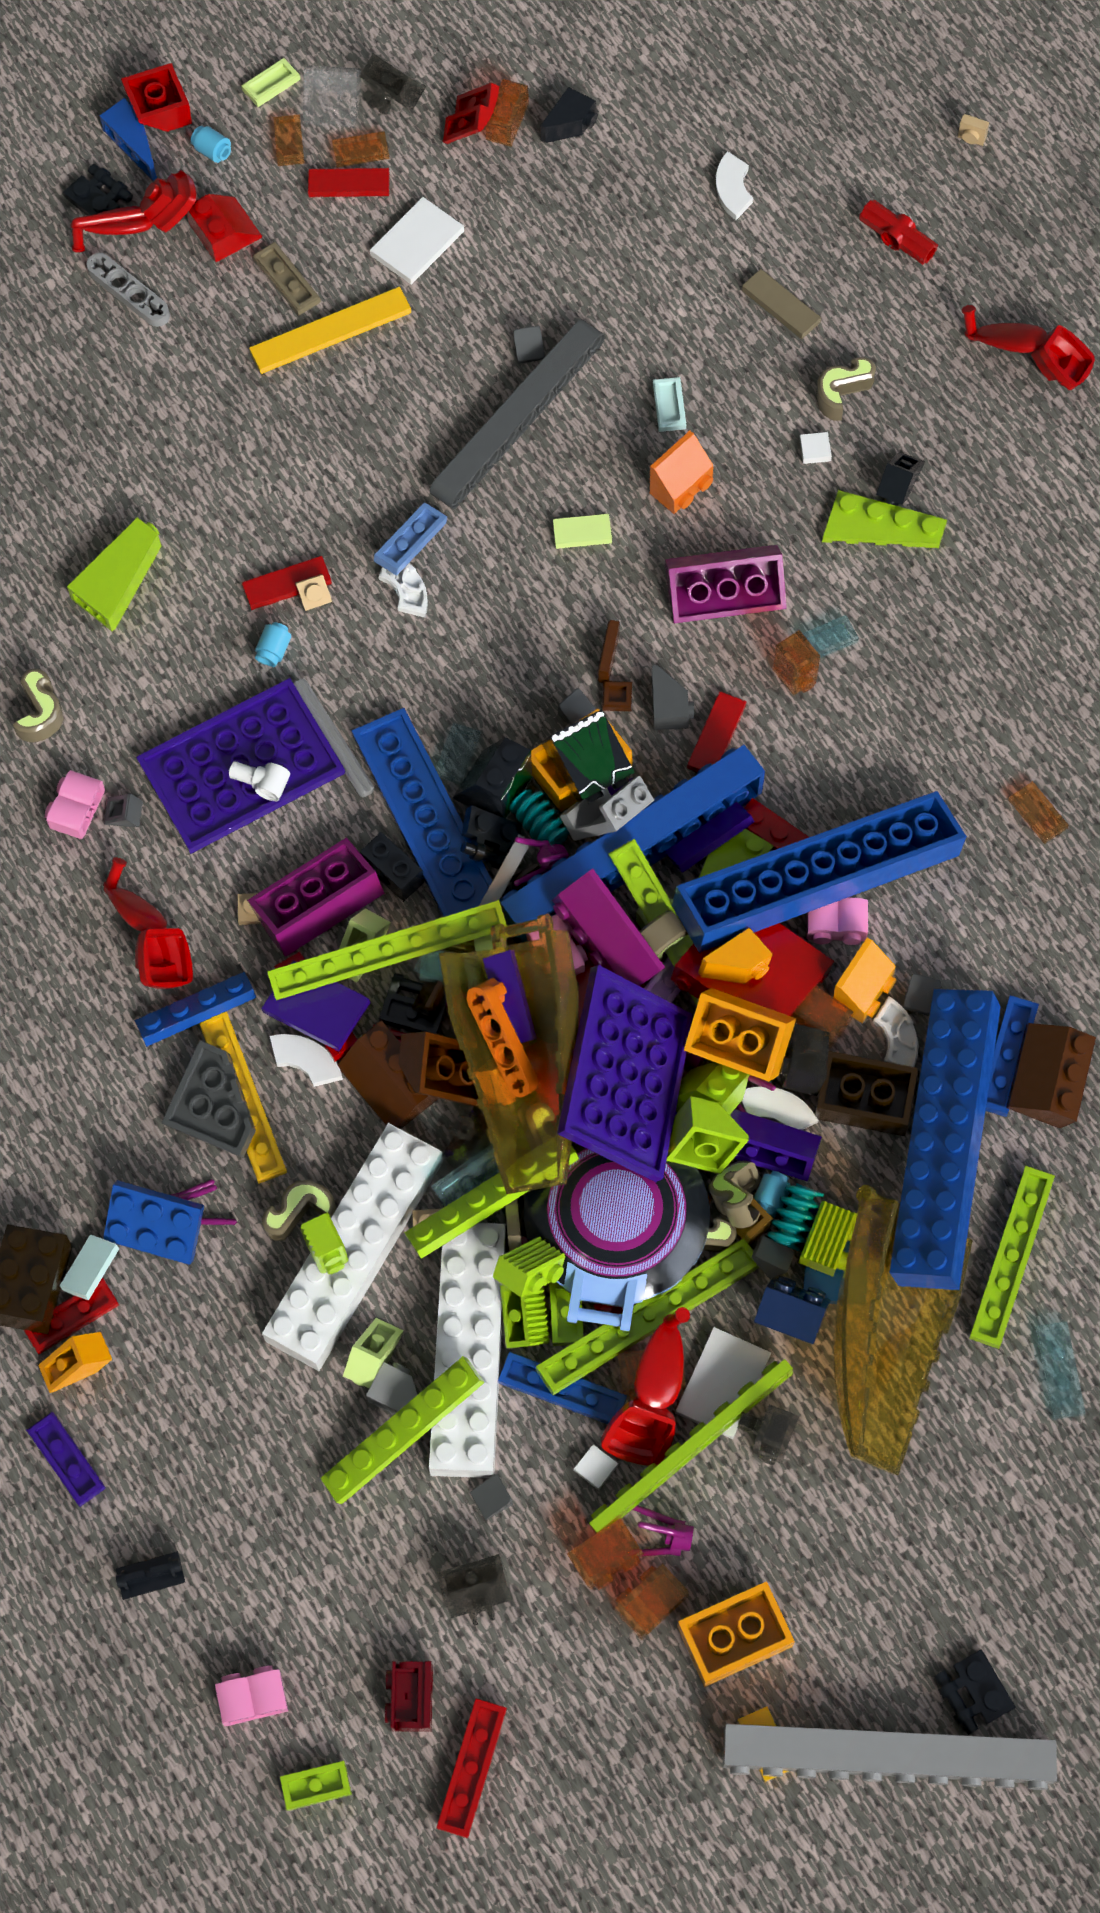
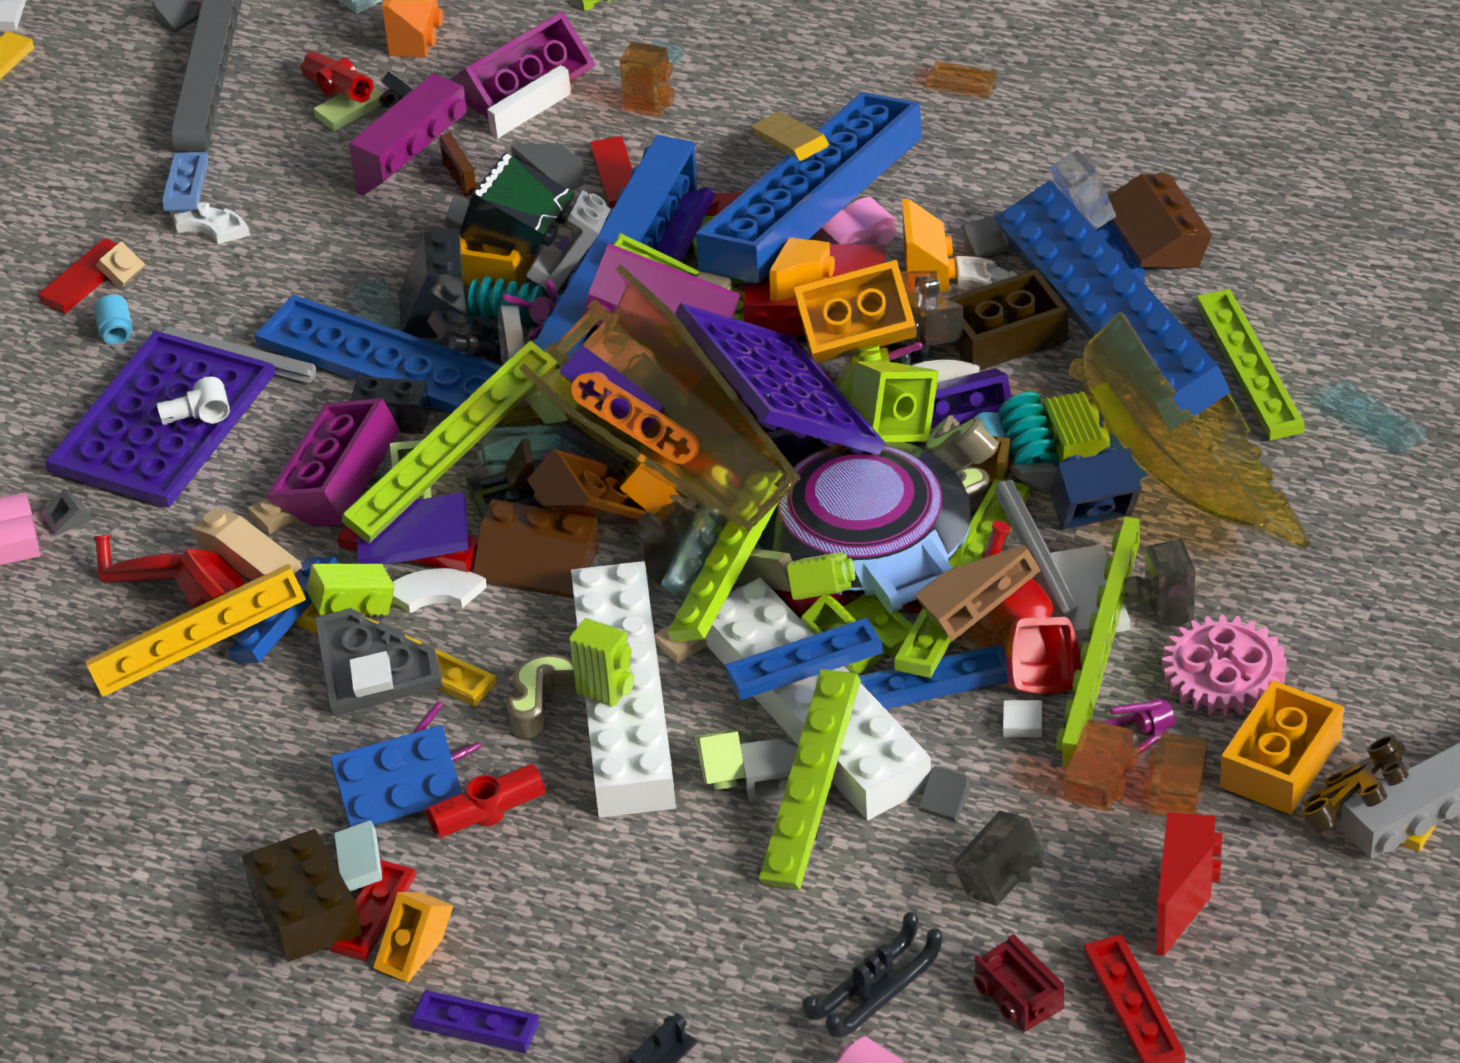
camera: 35 degrees left, 25 degrees down
(117, 996) = (195, 630): none -> yellow plate
(178, 1279) = (485, 800): none -> red piece
(198, 1119) = (371, 674): none -> white tile
(201, 940) = (241, 544): none -> tan slope
(240, 1030) = (352, 586): none -> lime brick
(325, 1620) = (875, 980): none -> black piece
(466, 1330) = (803, 658): none -> blue plate
(579, 1697) = (1186, 873): none -> red slope
(585, 502) = (337, 77): none -> red piece
(585, 604) = (405, 131): none -> magenta slope
(611, 1357) = (972, 590): none -> medium nougat slope
(624, 546) = (396, 91): none -> black tile
(705, 620) = (529, 101): none -> white tile
(713, 1331) = (1030, 537): none -> light grey axle
(789, 1698) = (1383, 754): none -> dark brown plant
(790, 1523) = (1222, 664): none -> bright pink gear
(840, 809) = (790, 135): none -> yellow tile
(1007, 1019) = (1083, 188): none -> clear brick

